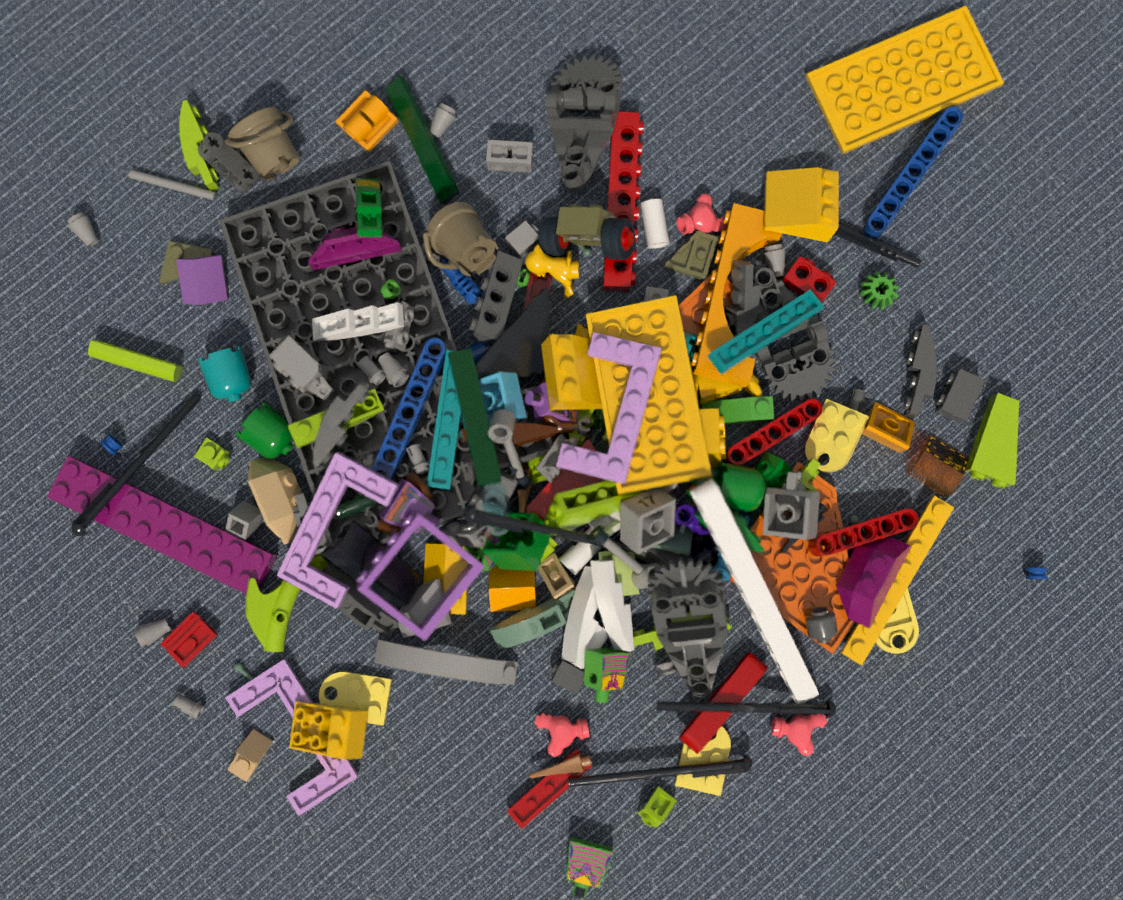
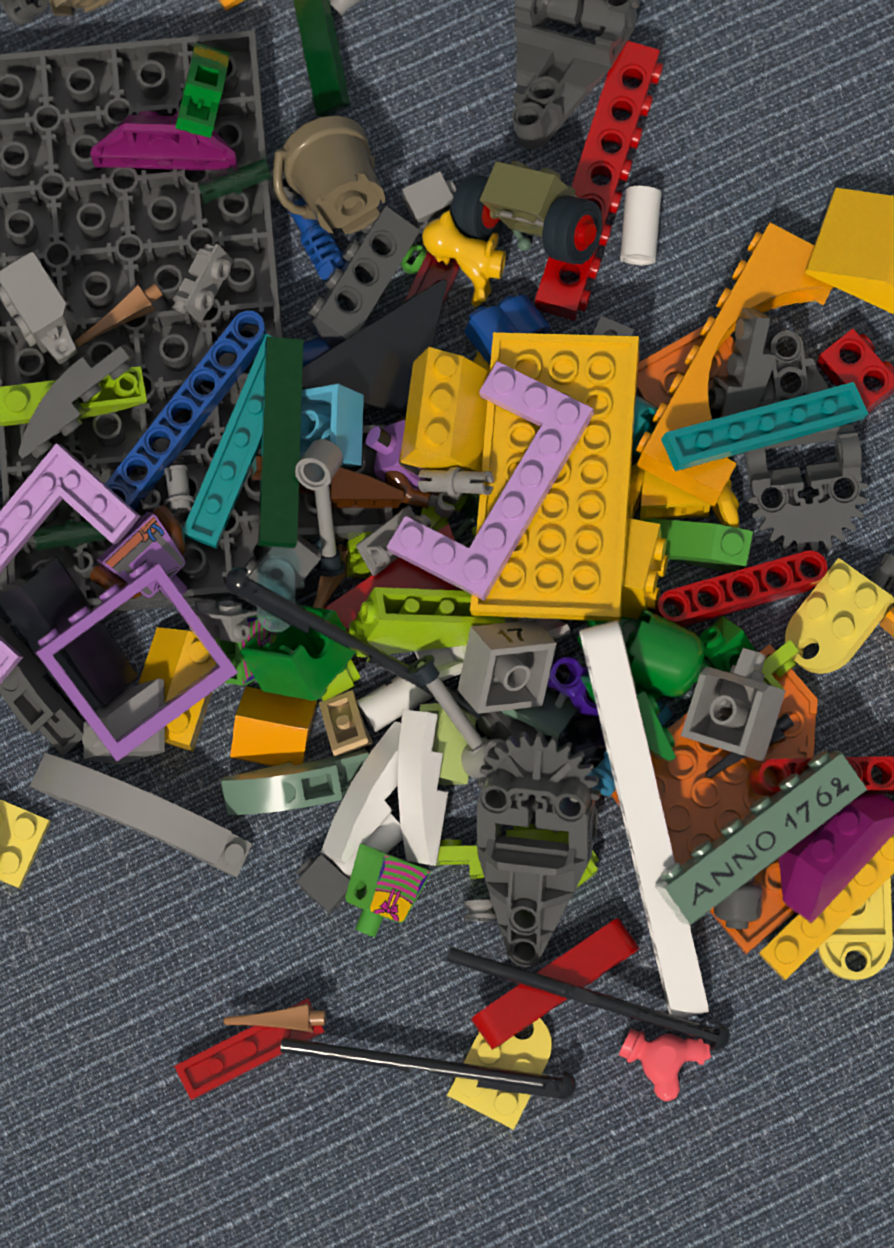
camera: 15 degrees right, 5 degrees down
(357, 323) = (141, 261): white slope -> none
(361, 349) = (132, 306): none -> medium nougat piece
(371, 370) = (146, 344): light grey pin -> none
(387, 287) = (202, 218): bright green hinge -> none
(394, 371) = (177, 347): light grey cone -> none
(402, 258) = (234, 180): none -> clear green pin
(509, 156) = (441, 68): light grey brick -> none
(561, 731) = (292, 966): coral animal -> none
(587, 413) = (456, 481): none -> light grey pin
(587, 864) = (276, 1181): torso -> none
(591, 300) = (509, 316): none -> blue brick
(657, 808) = (409, 1122): lime bracket -> none
(694, 256) = (689, 291): olive wing -> none
(701, 218) = (714, 234): coral animal -> none
(775, 259) = (815, 326): light grey cone -> none
(828, 586) = (759, 837): none -> sand green brick

